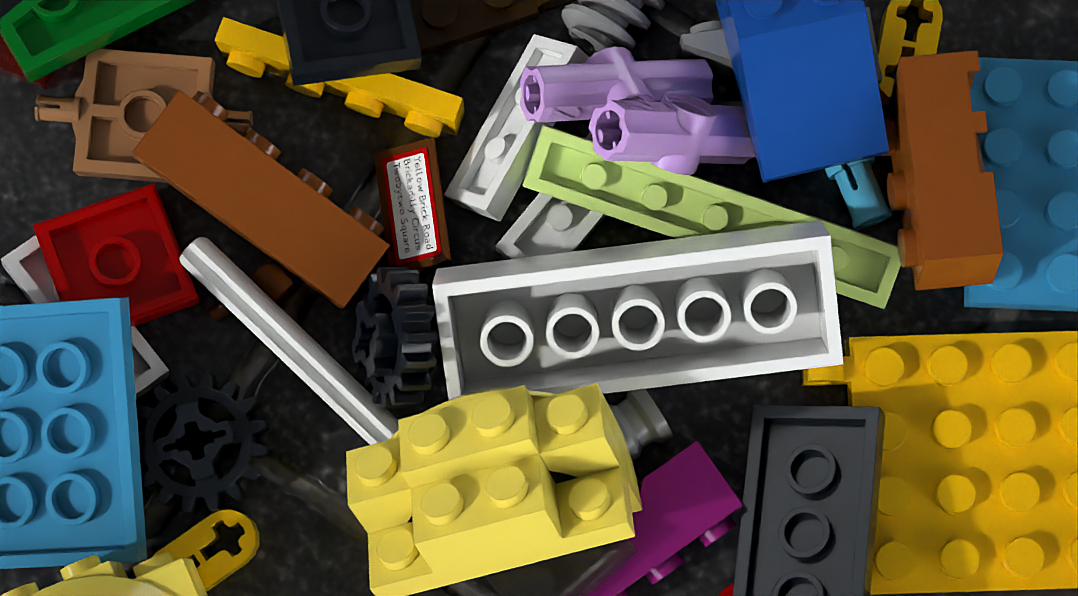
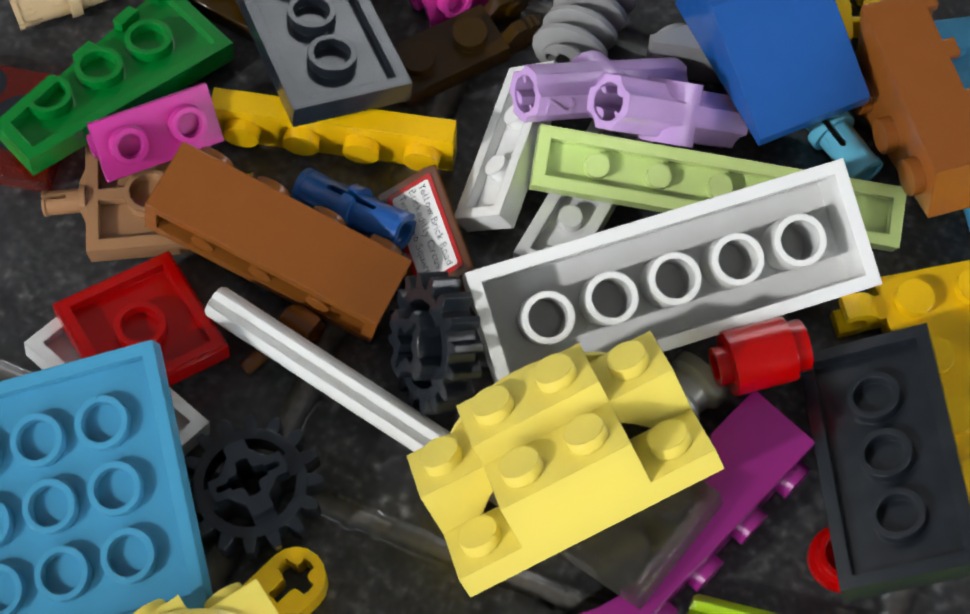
camera: 10 degrees left, 15 degrees down
(156, 60) = (153, 132): none -> dark pink hinge
(345, 169) = (355, 206): none -> blue pin
(708, 412) = (761, 355): none -> red brick

